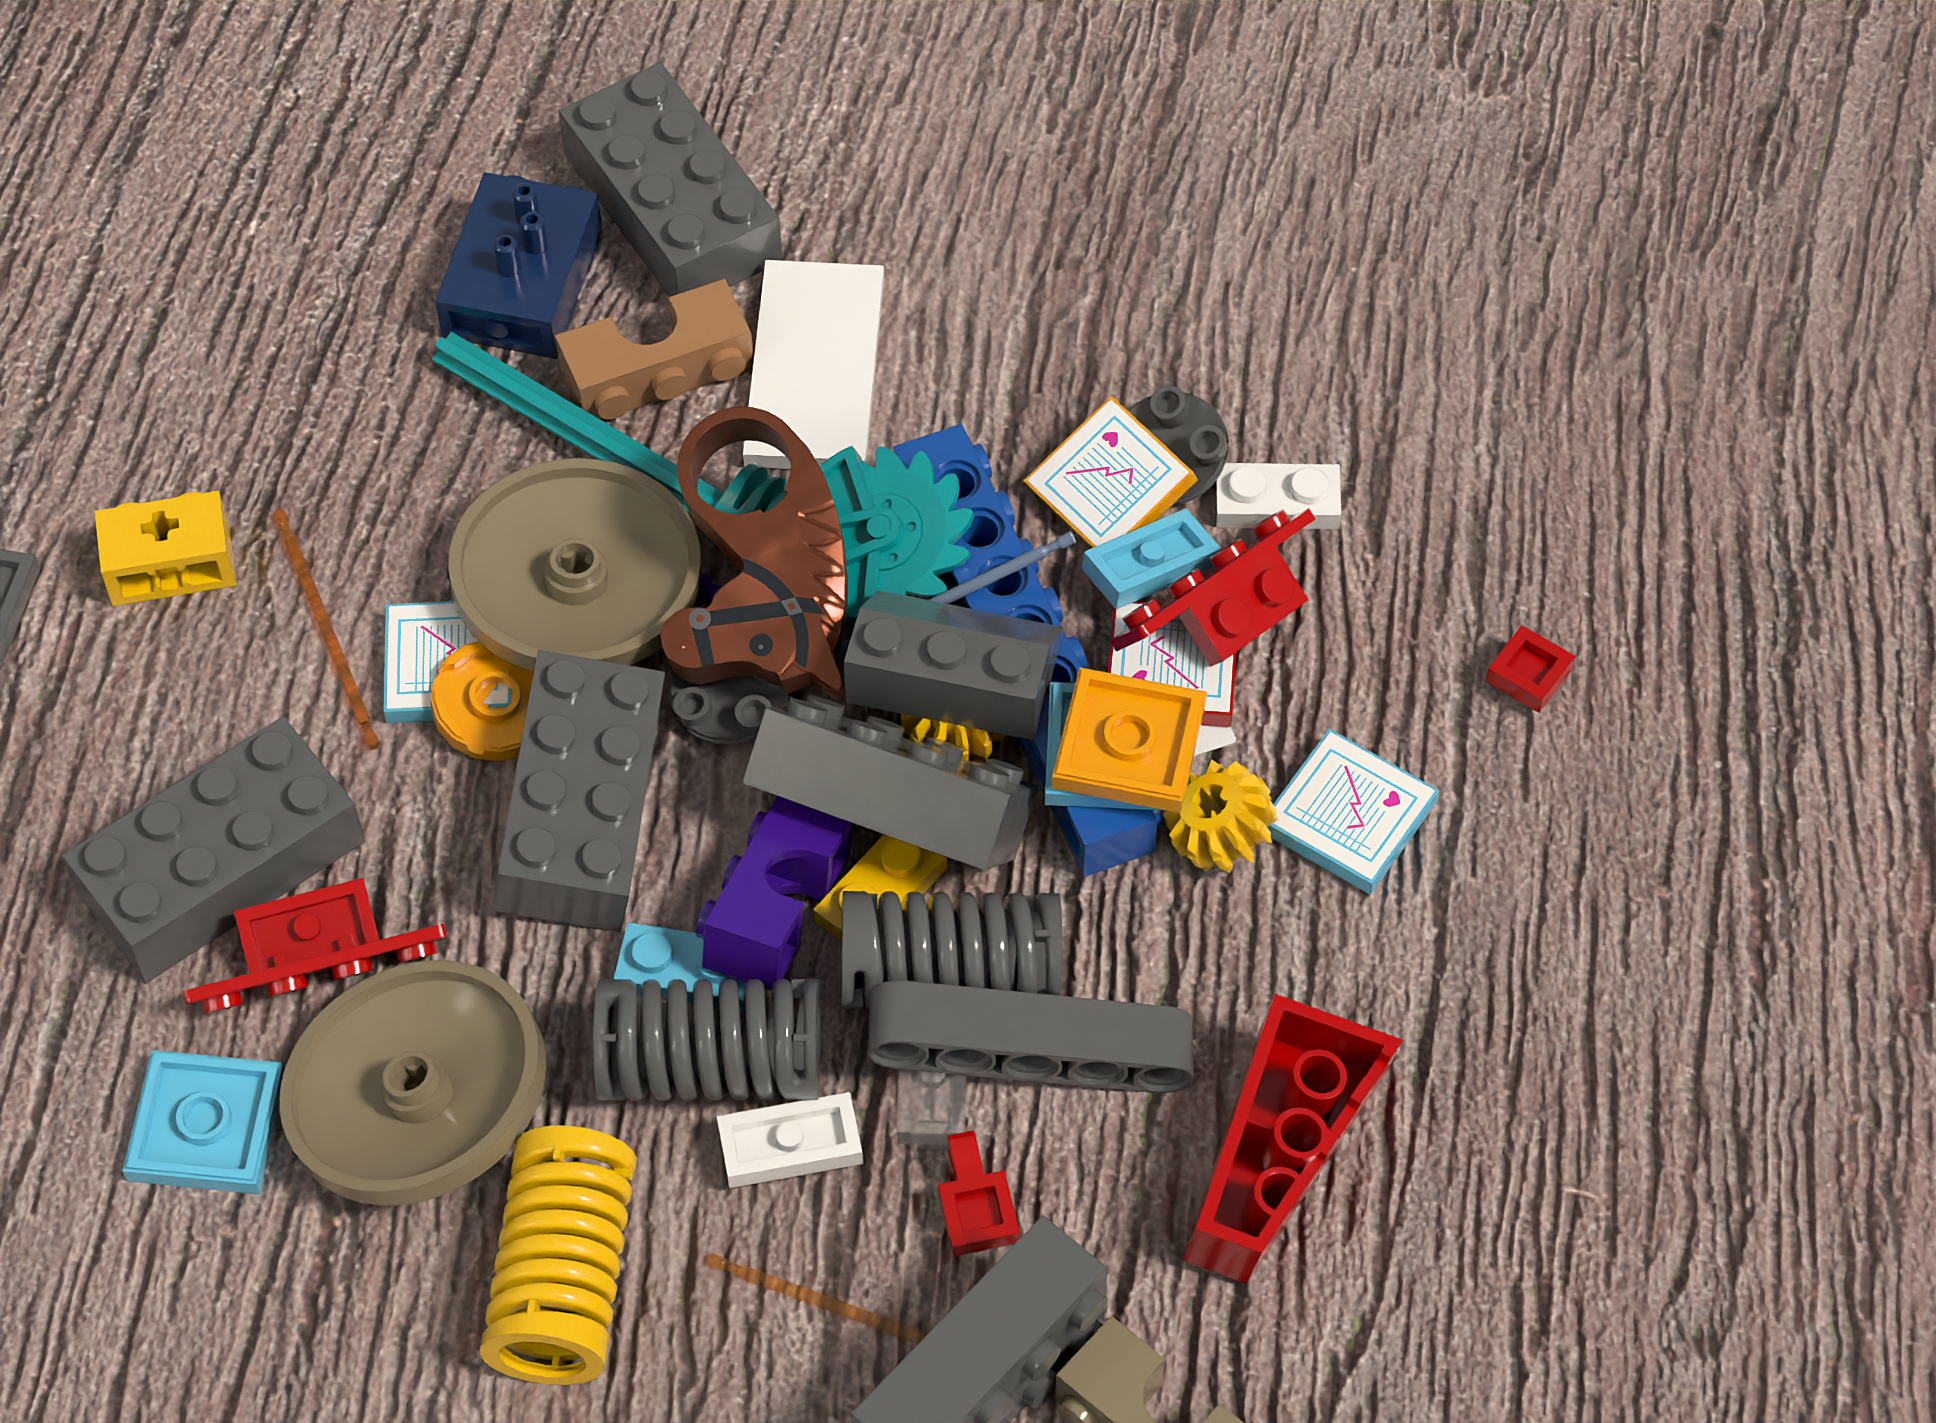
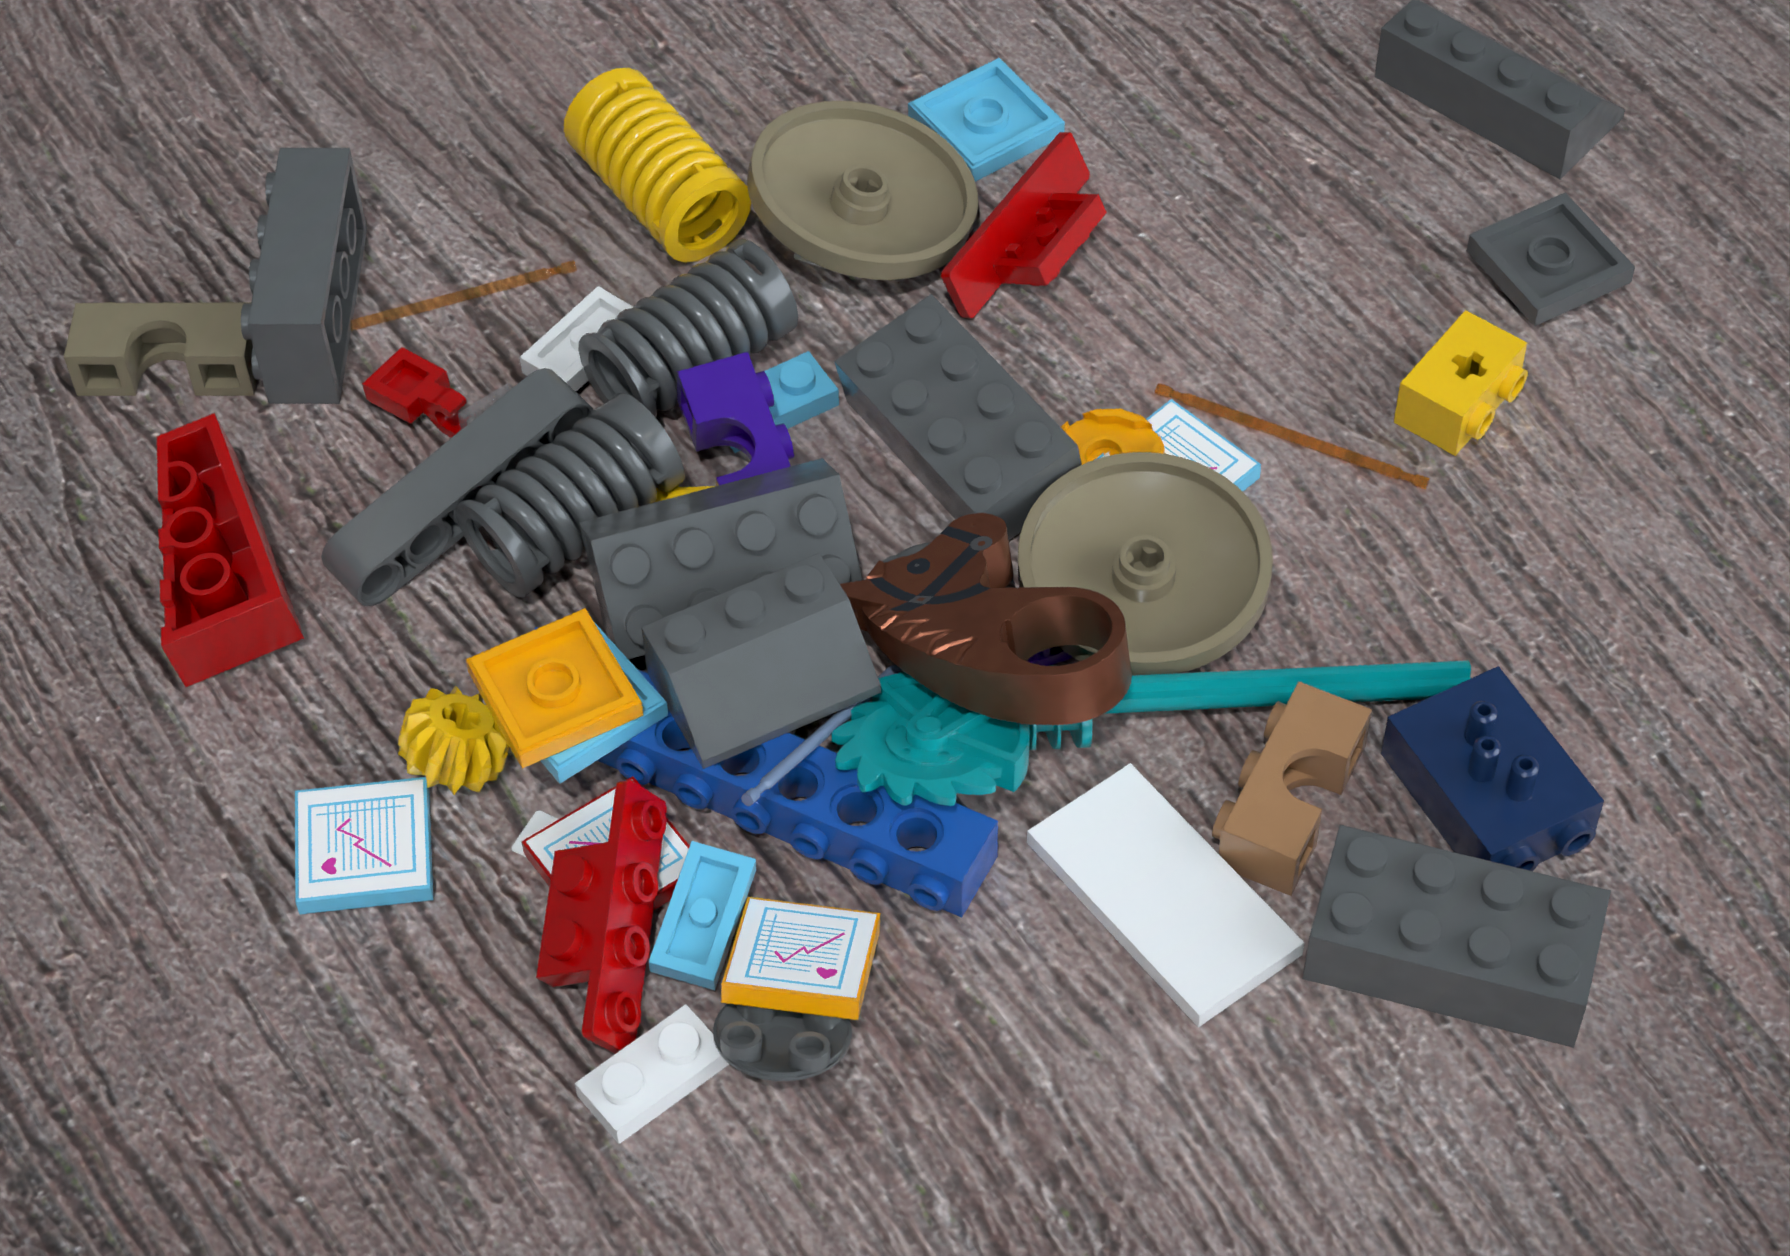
camera: 140 degrees right, 5 degrees down
(214, 845) = (1166, 234): dark grey brick -> none
(1530, 668) = (292, 1062): red plate -> none

